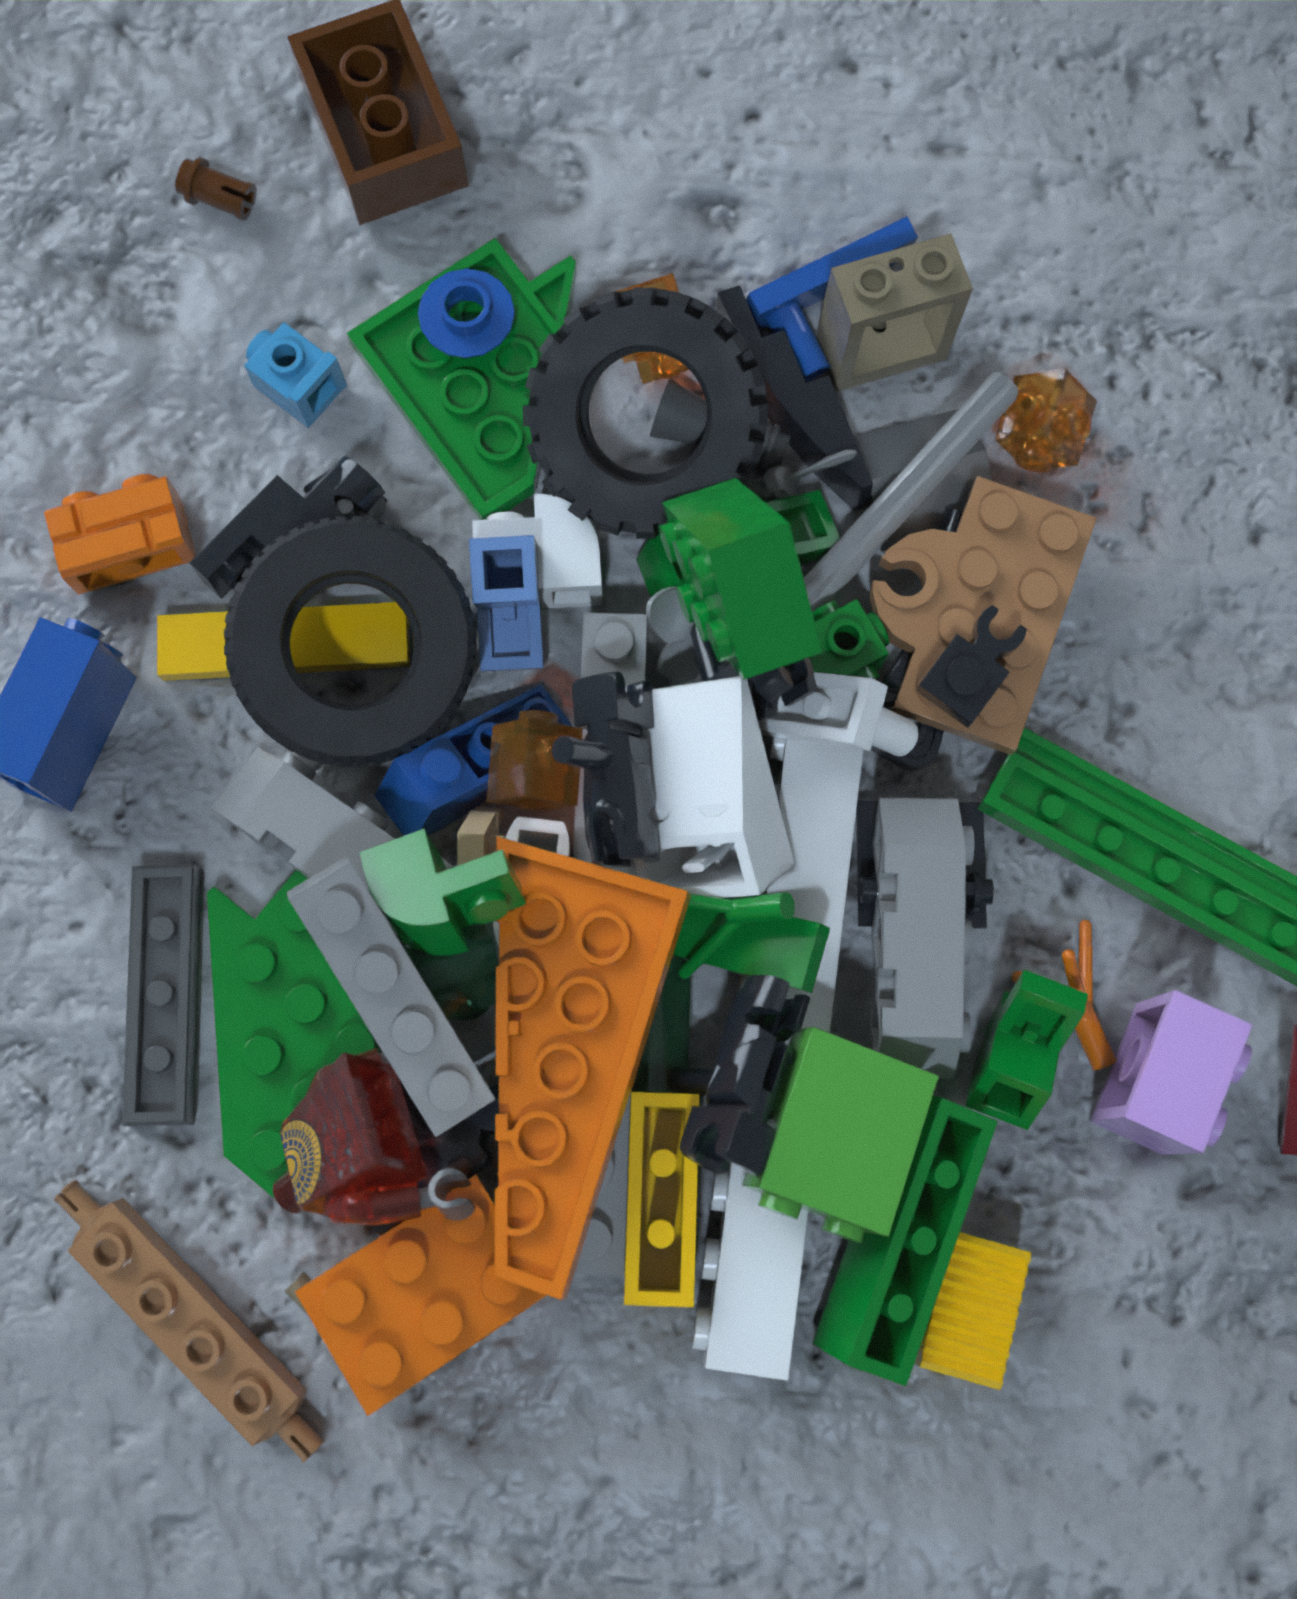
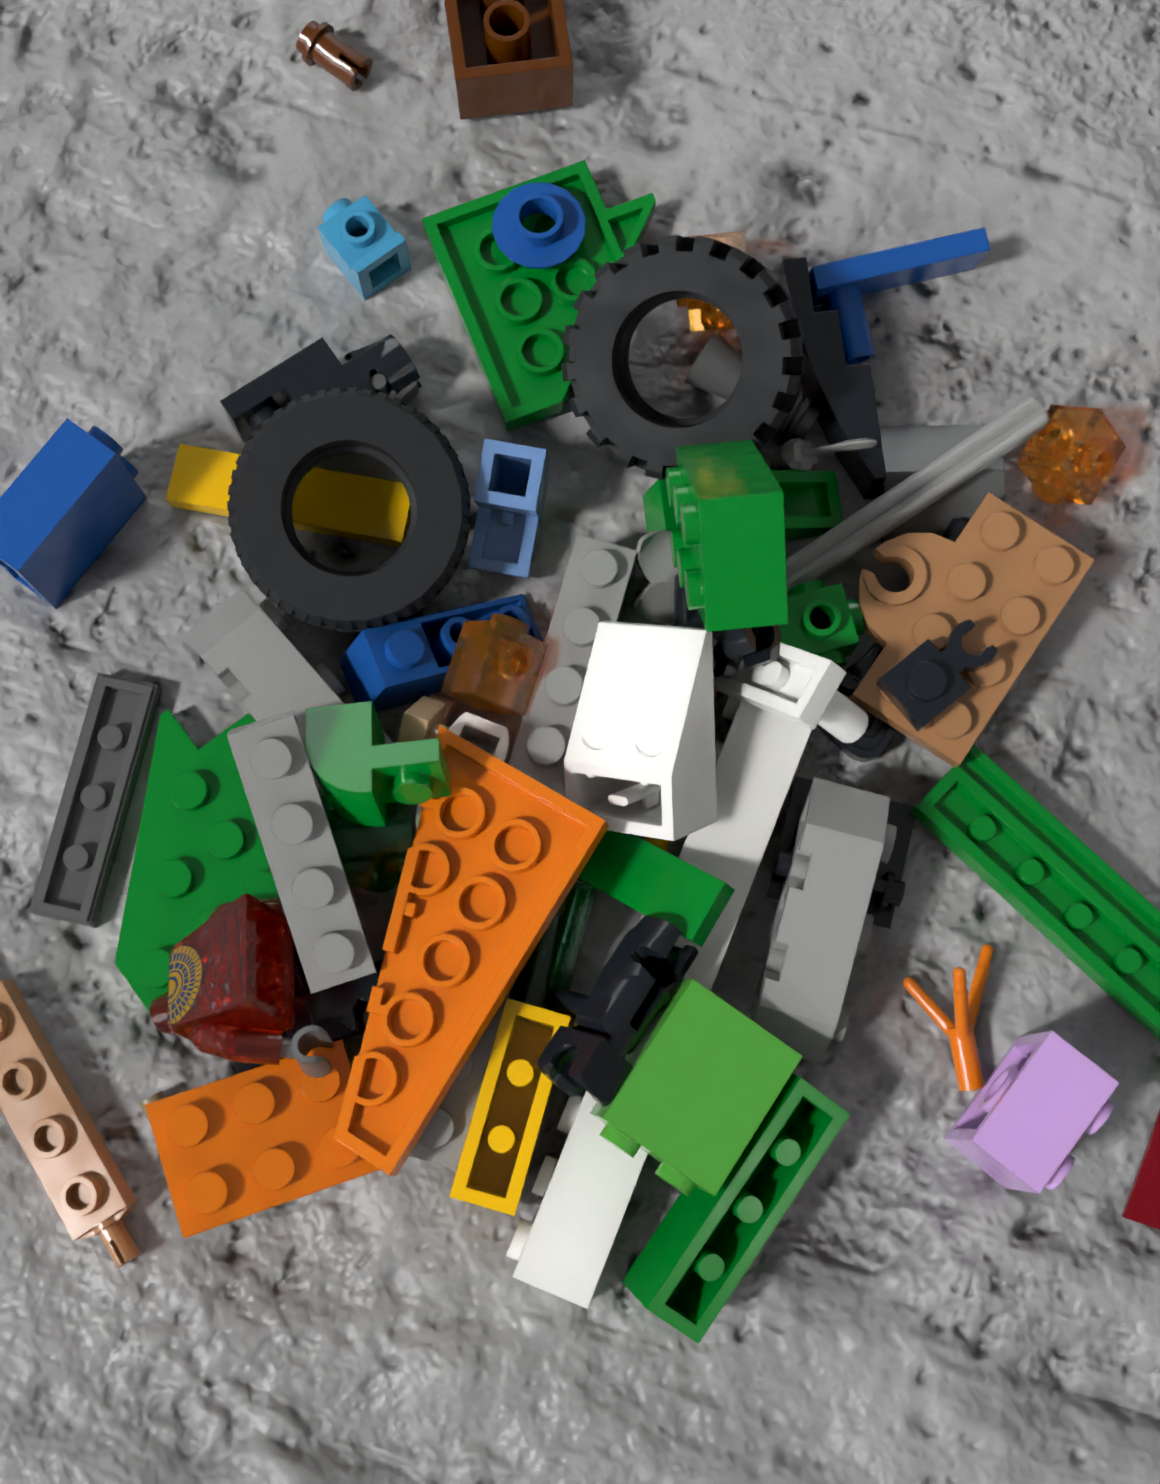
camera: 15 degrees right, 0 degrees up
(119, 533) = (164, 358): orange brick -> none
(565, 550) = (576, 470): white brick -> none
(614, 766) = (567, 687): black piece -> none
(737, 912) = (649, 853): green plant -> none
(911, 308) = (967, 314): dark tan window -> none
(976, 1312) = (783, 1290): yellow brick -> none
(1022, 1049) = (895, 1052): green brick -> none

